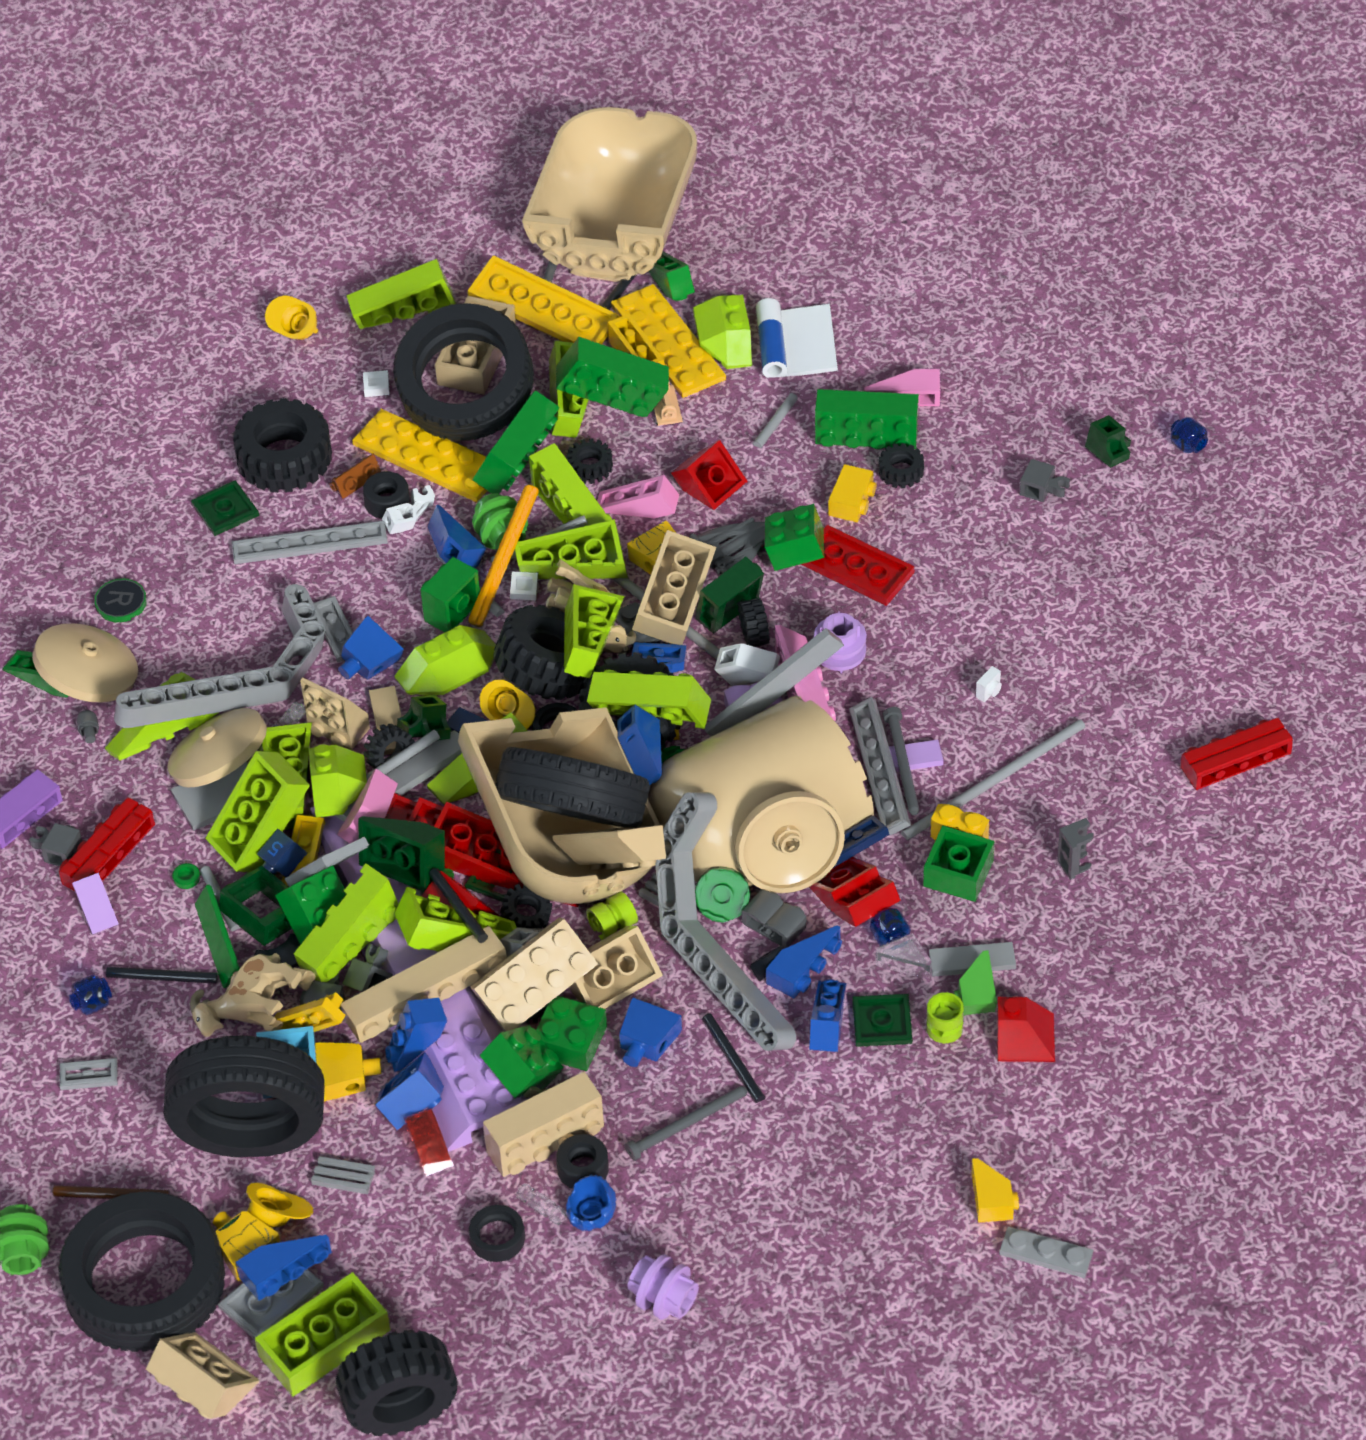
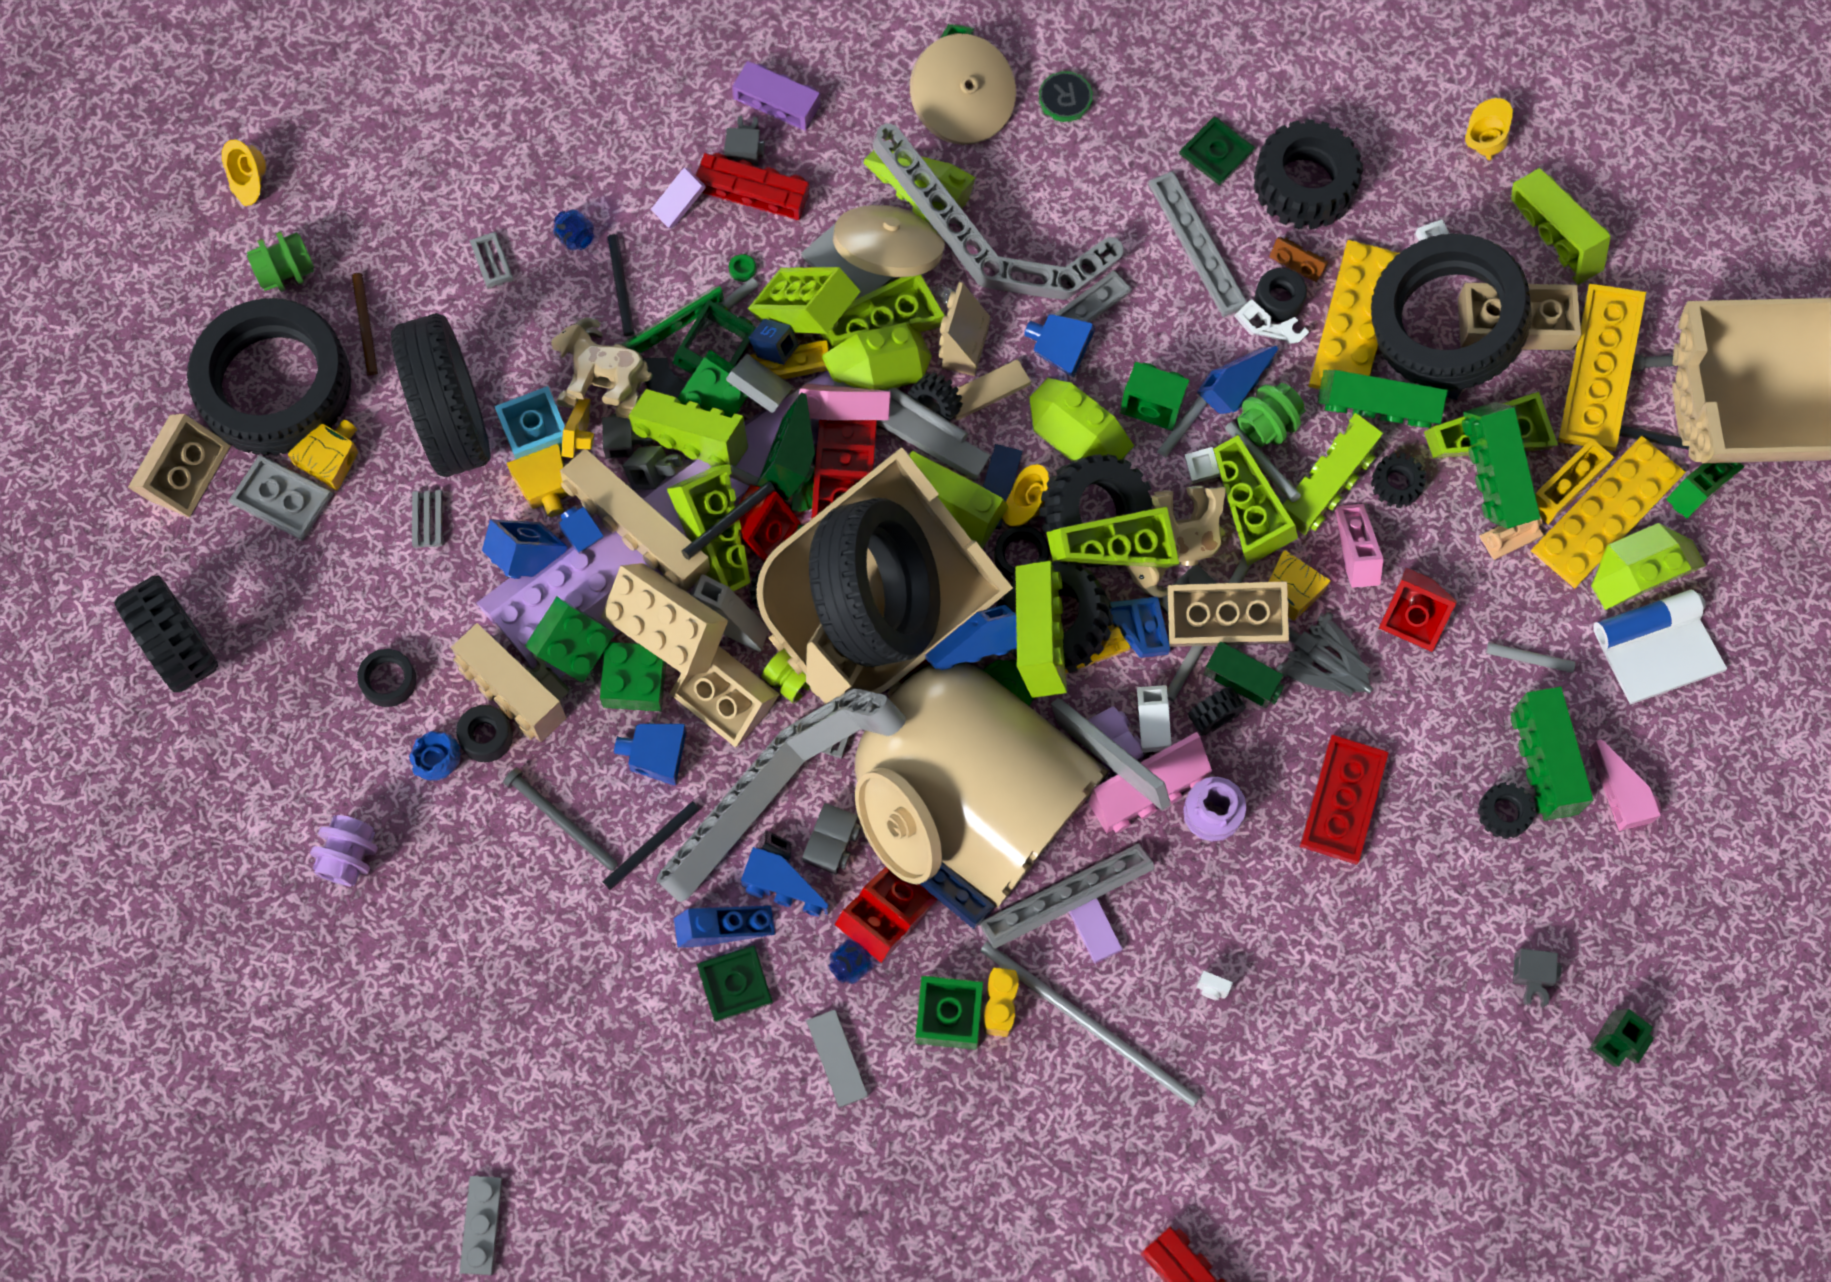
camera: 70 degrees right, 20 degrees up
(87, 725) = (902, 118): dark grey cylinder -> none
(276, 1206) = (370, 469): yellow piece -> none
(278, 1263) = (295, 485): blue slope -> none
(322, 1334) = (234, 554): lime brick -> none
(424, 716) = (985, 422): dark green brick -> none
(428, 1141) = (472, 580): clear red slope -> none
(503, 555) = (1221, 430): light orange axle -> none
(541, 1204) = (432, 708): clear axle -> none
(722, 894) = (839, 776): tile -> none
(794, 537) = (1349, 721): green brick -> none
(851, 493) = (1444, 767): yellow brick -> none
(893, 717) = (1134, 893): dark grey bar -> none
(905, 957) = (816, 988): clear slope -> none
(945, 1017) = (741, 1047): lime wheel -> none
(977, 987) = (789, 1073): bright green slope -> none
(992, 1193) = (534, 1151): yellow slope -> none
(1024, 1031) = (750, 1138): red slope -> none
(1073, 847) = (997, 1133): dark grey hinge -> none
(1188, 435) = (1670, 1130): clear blue head -> none

